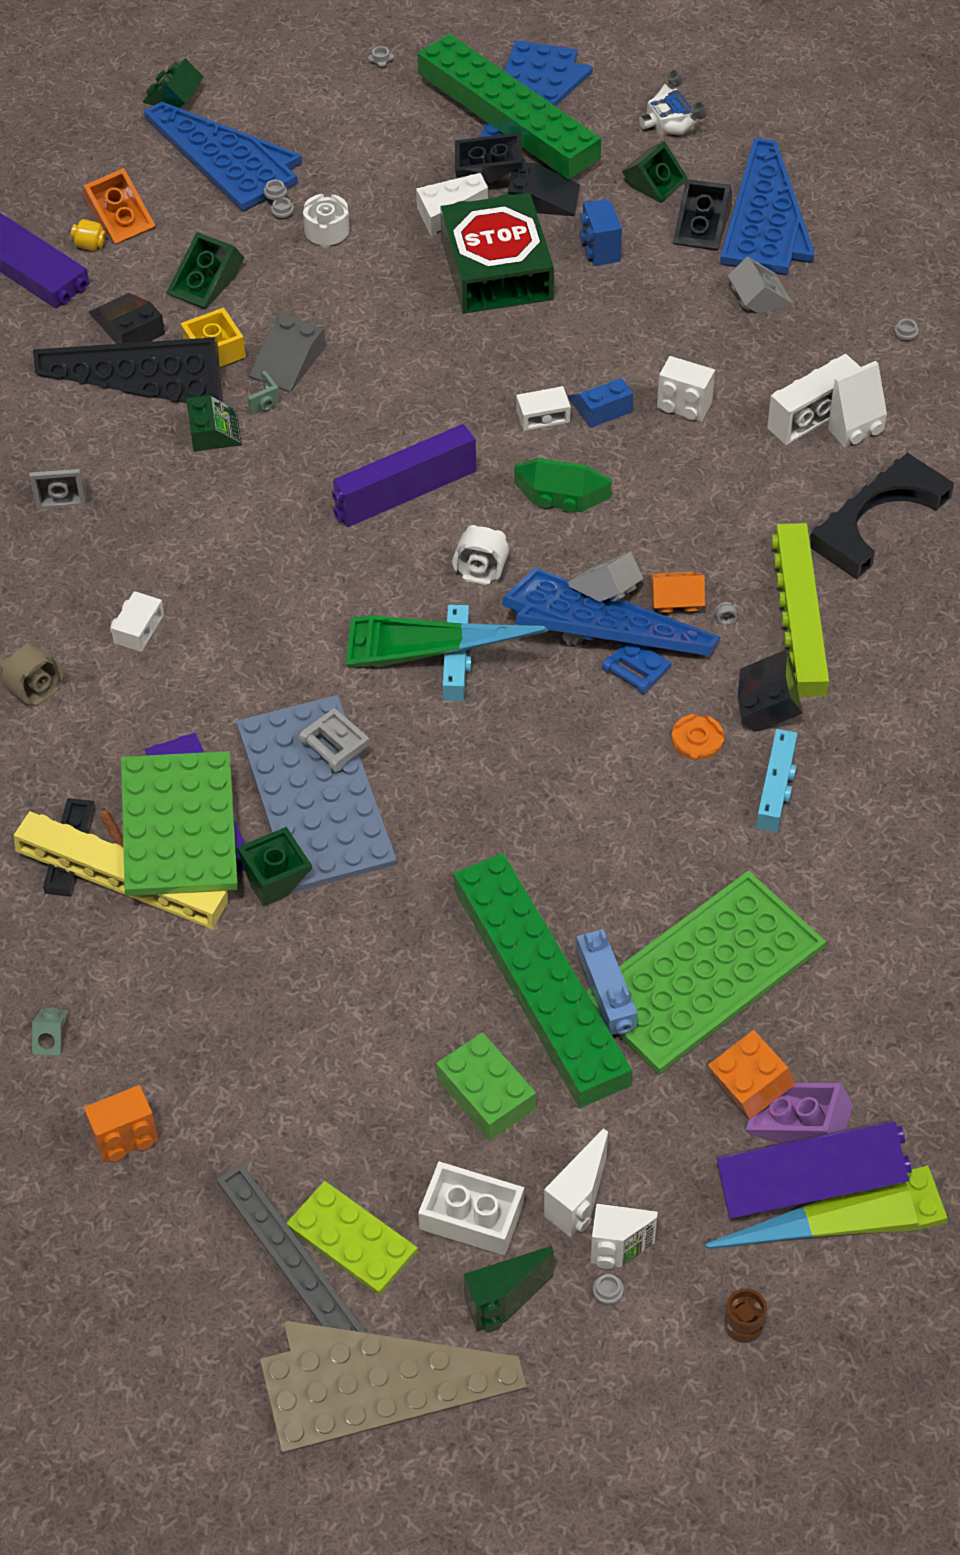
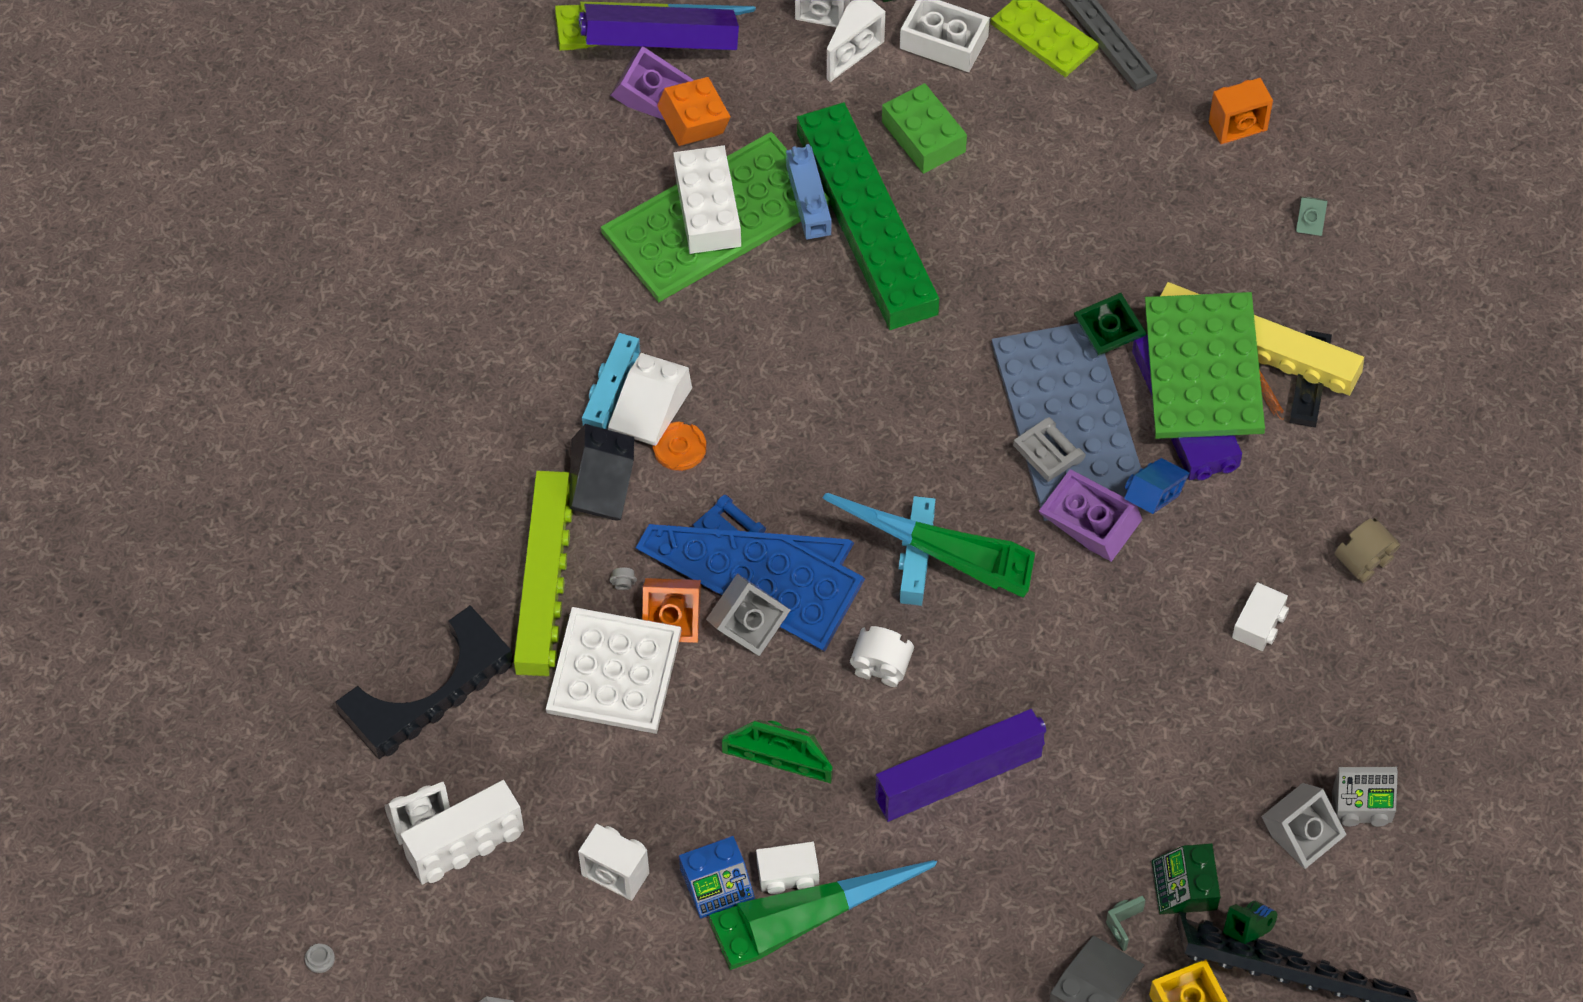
camera: 175 degrees left, 5 degrees up
(115, 469) = (1304, 824): none -> light grey slope
(161, 393) = (1254, 920): none -> dark green leg
(230, 703) = (1155, 485): none -> blue brick
(291, 685) = (1092, 514): none -> medium lavender slope
(568, 369) = (771, 922): none -> green plate
(716, 962) = (707, 199): none -> white brick
(717, 535) = (614, 670): none -> white plate
(733, 766) = (650, 398): none -> white slope

